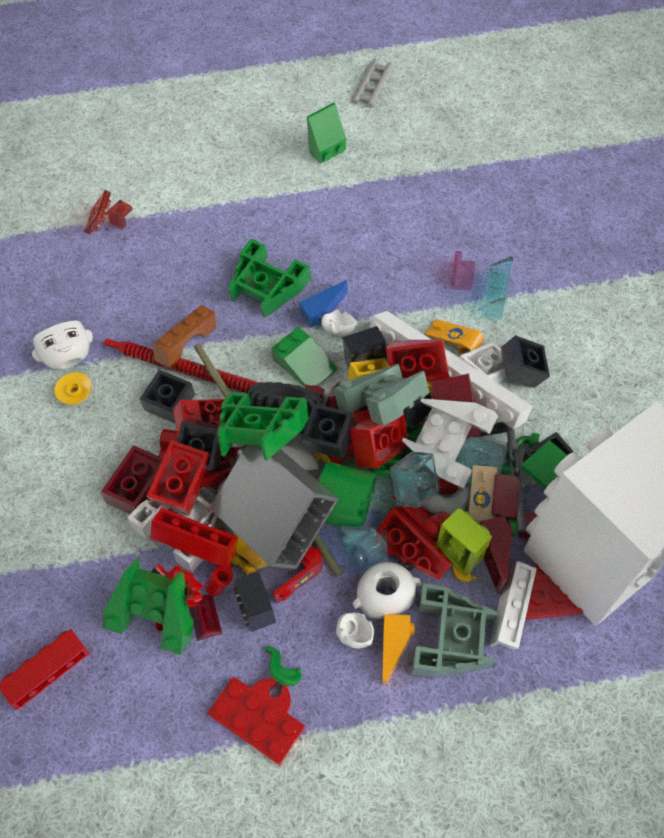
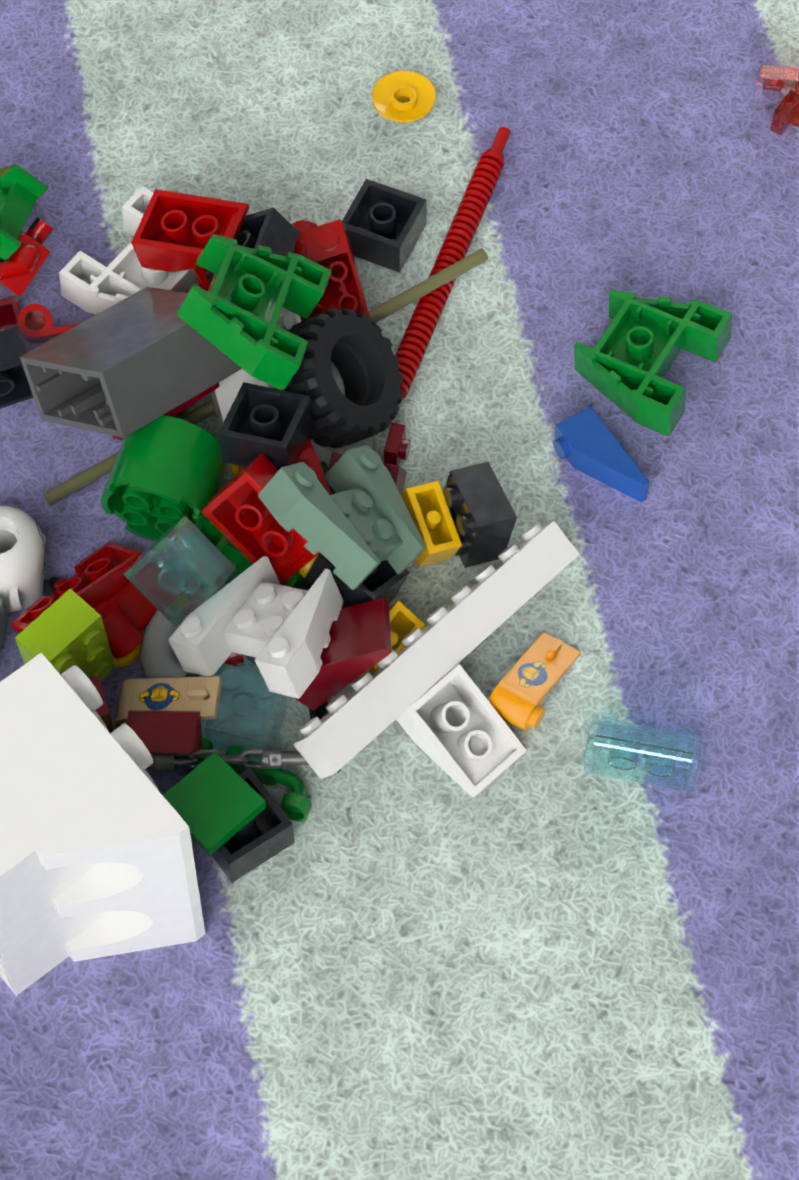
camera: 85 degrees right, 0 degrees up
(62, 345) = (481, 67): white piece -> none
(132, 480) = (218, 179): dark red slope -> none
(171, 345) = (537, 253): dark orange arch -> none
(194, 537) = (88, 264): red brick -> none
(303, 358) = (472, 423): slope -> none
(311, 564) = (59, 449): red door -> none
(338, 324) = (551, 476): white hair -> none
(364, 545) = (77, 519): clear light blue slope -> none
(419, 356) = (438, 575): red slope -> none
(462, 273) = (696, 697): clear pink panel -> none
(525, 361) = (459, 787): black brick -> none

